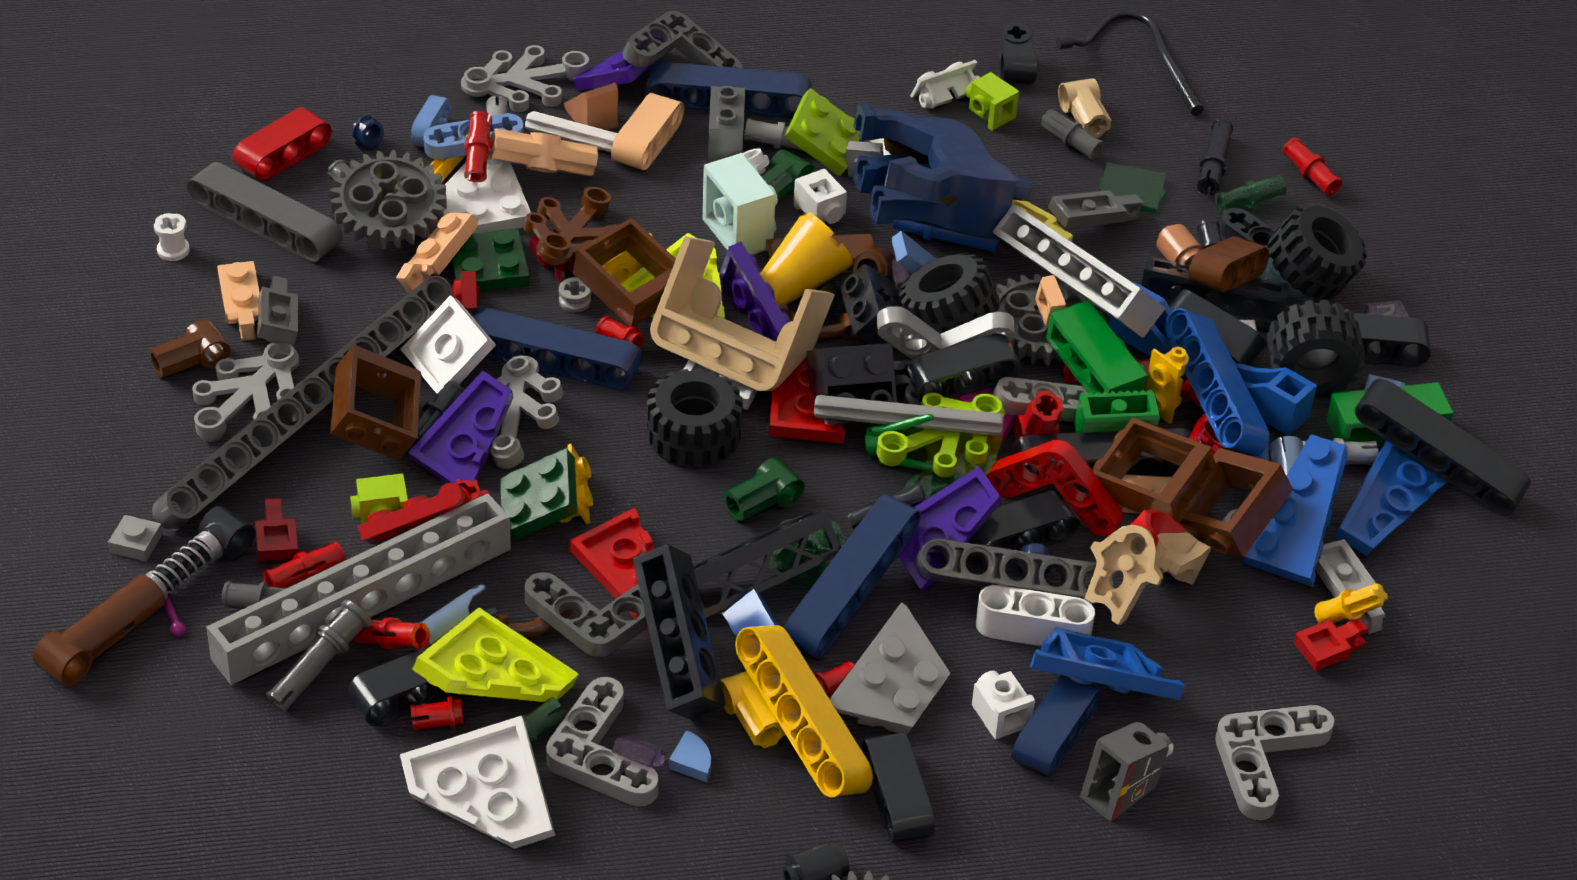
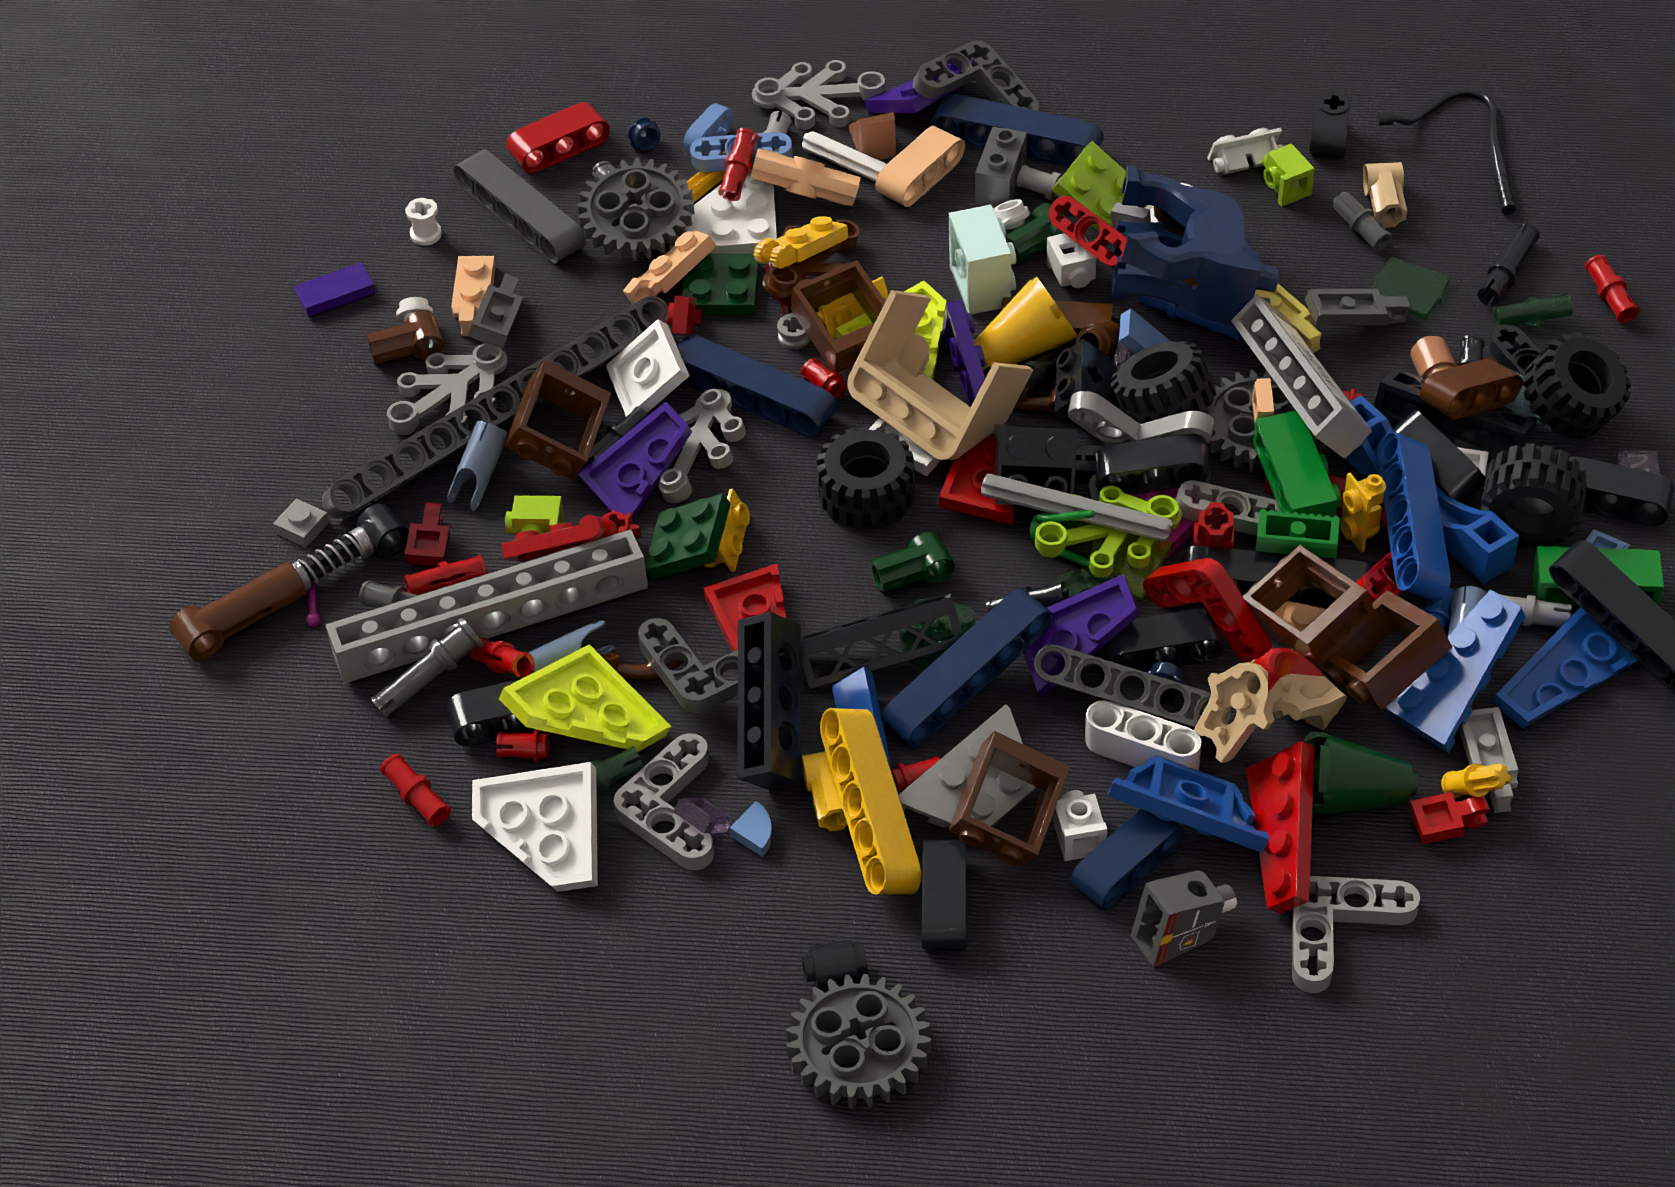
camera: 20 degrees right, 5 degrees up
(97, 312) = (334, 289): none -> dark purple tile
(186, 317) = (412, 305): none -> white plate
(306, 450) = (479, 461): none -> sand blue piece
(341, 774) = (415, 790): none -> red pin
(564, 210) = (801, 242): none -> yellow hinge
(832, 156) = (1078, 230): none -> red beam
(946, 655) = (1027, 766): none -> reddish brown window
(1187, 650) = (1283, 808): none -> red wing
(1233, 620) = (1356, 777): none -> dark green cone

